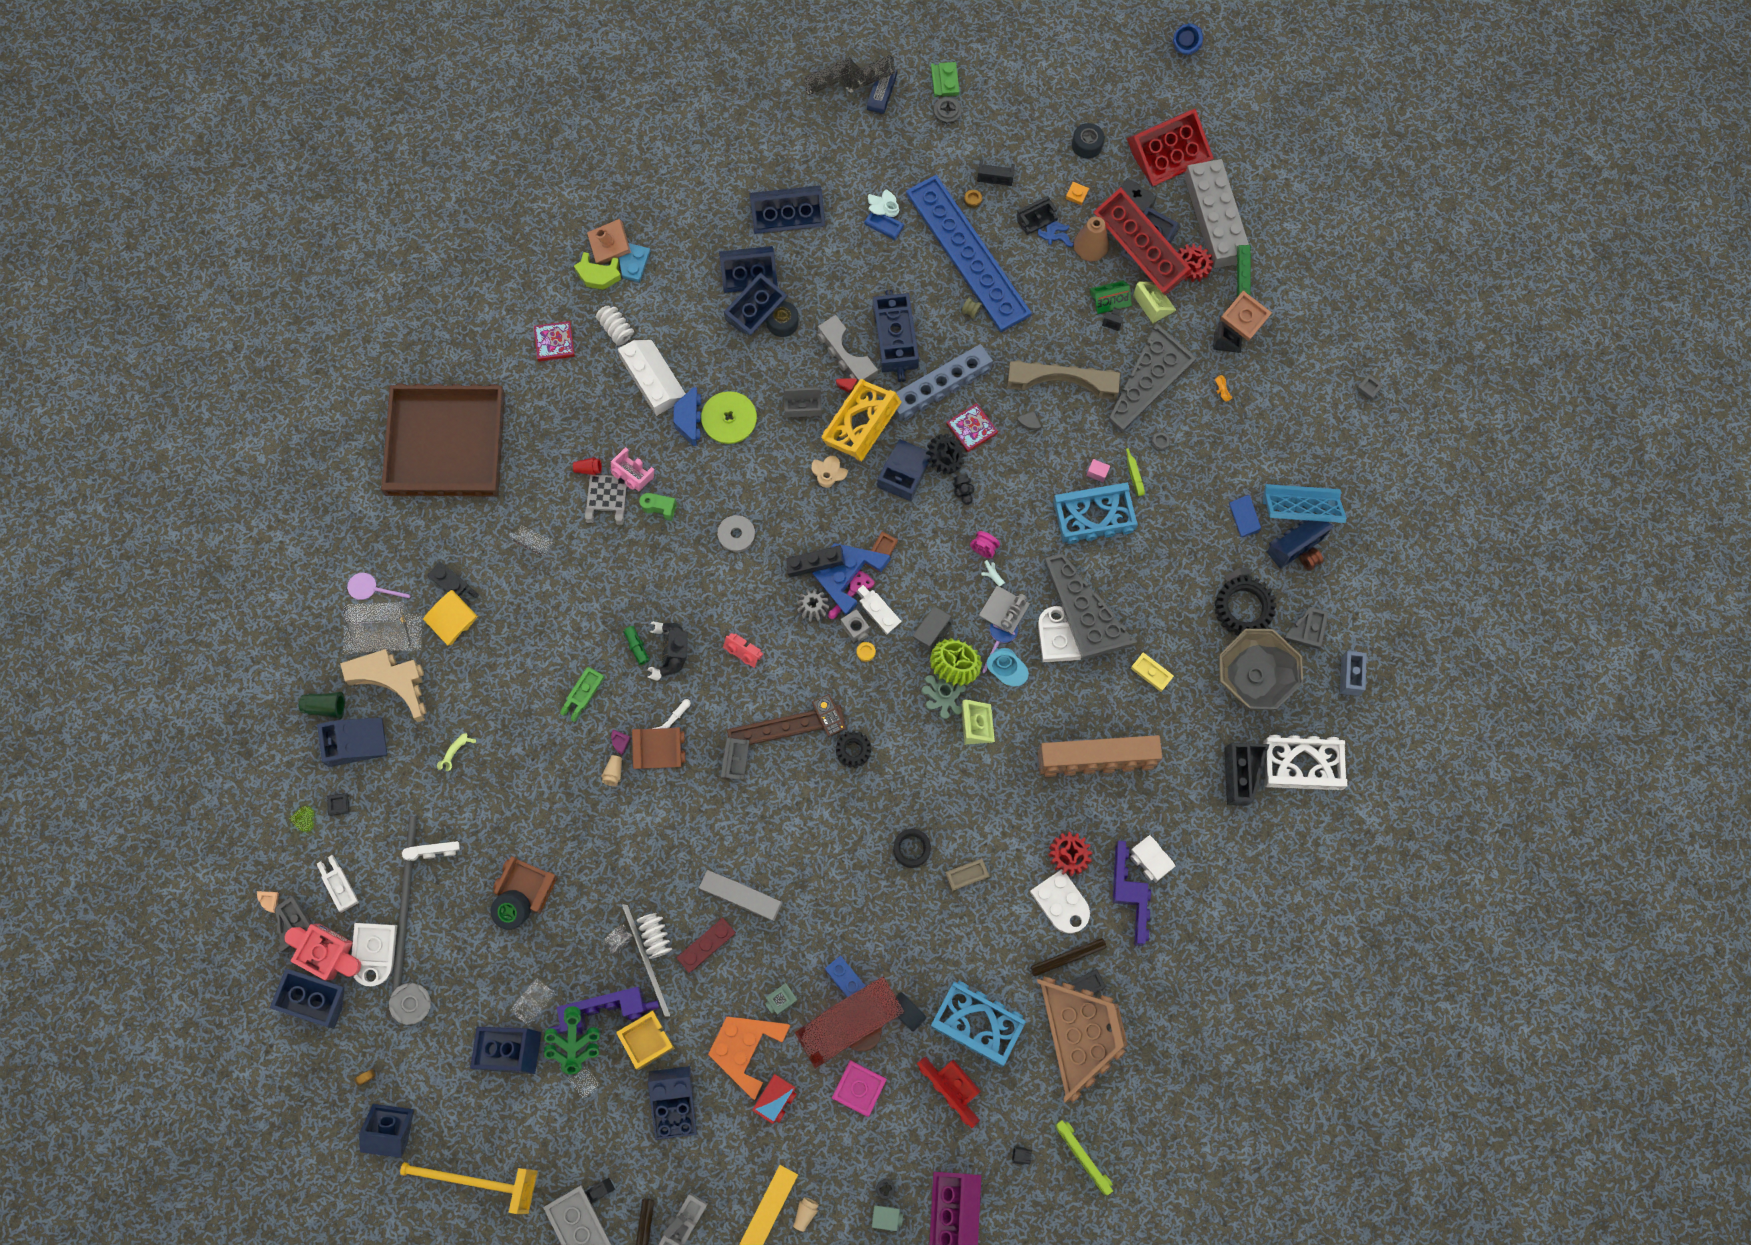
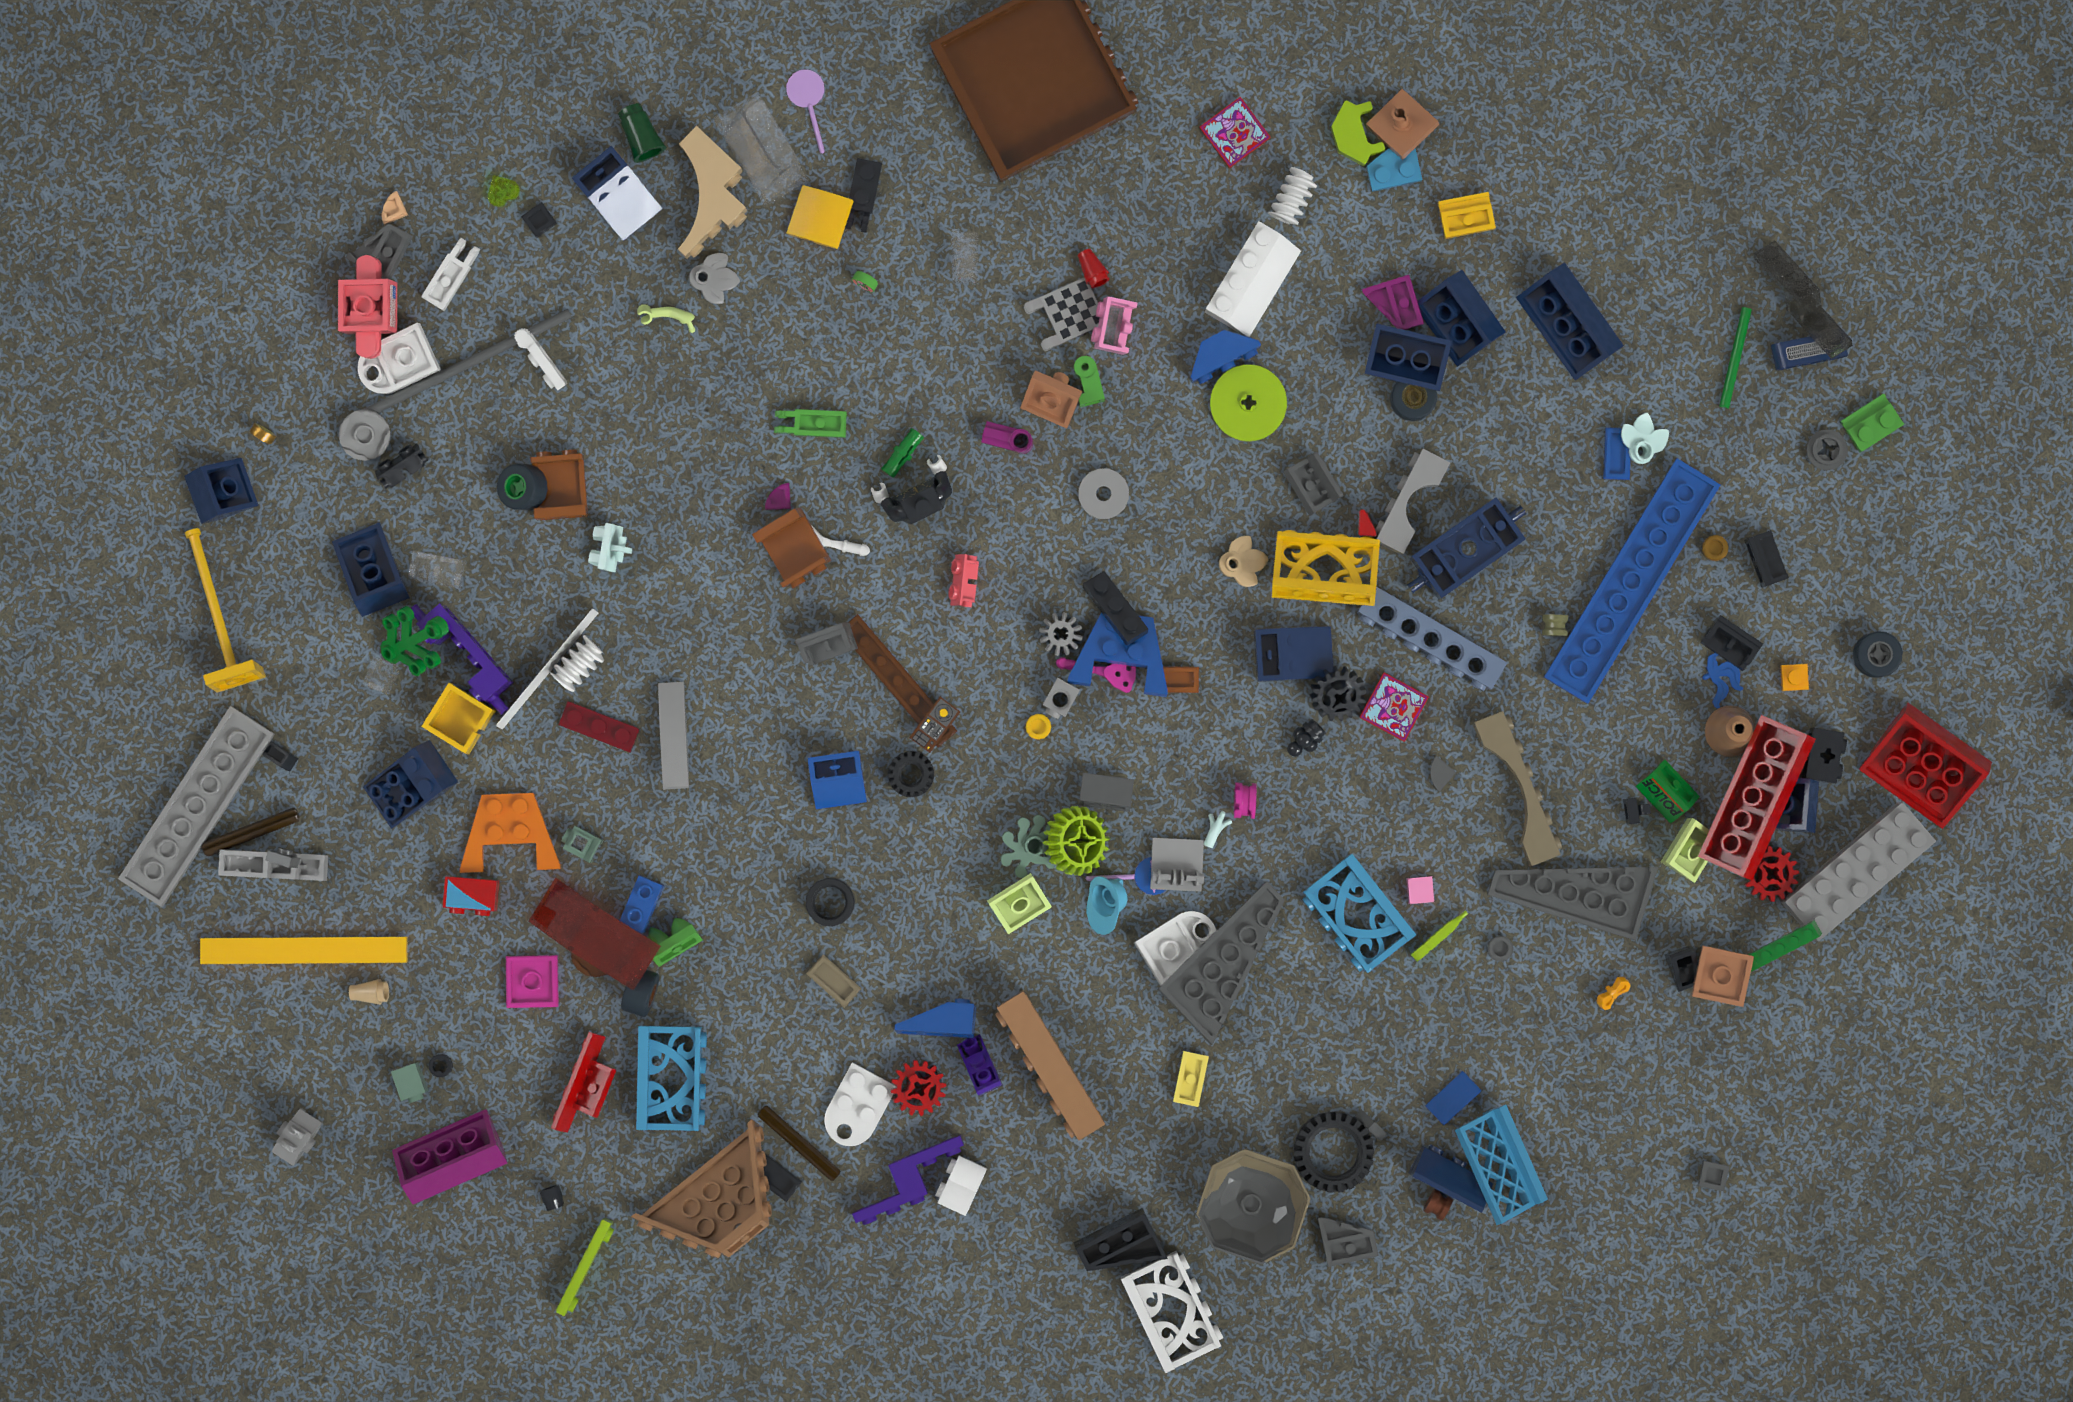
camera: 65 degrees right, 15 degrees up
(308, 998) = (310, 323): dark blue slope -> none
(446, 997) = (407, 458): none -> black hinge
(450, 705) = (717, 278): none -> light grey plate
(509, 611) = (864, 281): none -> bright green tile
(589, 869) = (612, 547): none -> light aqua hips
(612, 772) = (739, 510): tan cone -> none
(617, 940) = (551, 625): clear wheel -> none
(656, 531) = (1051, 398): none -> nougat tile
(663, 574) = (1004, 437): none -> magenta piece
(687, 234) = (1466, 215): none -> yellow plate
(715, 299) = (1396, 302): none -> magenta wing
(830, 798) = (837, 780): none -> blue slope
(863, 132) = (1735, 357): none -> green bar
(878, 610) = (1096, 715): white hinge -> none
(884, 963) = (683, 938): none -> bright green tile
(1034, 809) = (945, 1020): none -> blue slope
(1076, 803) = (979, 1065): none -> dark purple slope
(1353, 673) = (1312, 1319): sand blue brick -> none

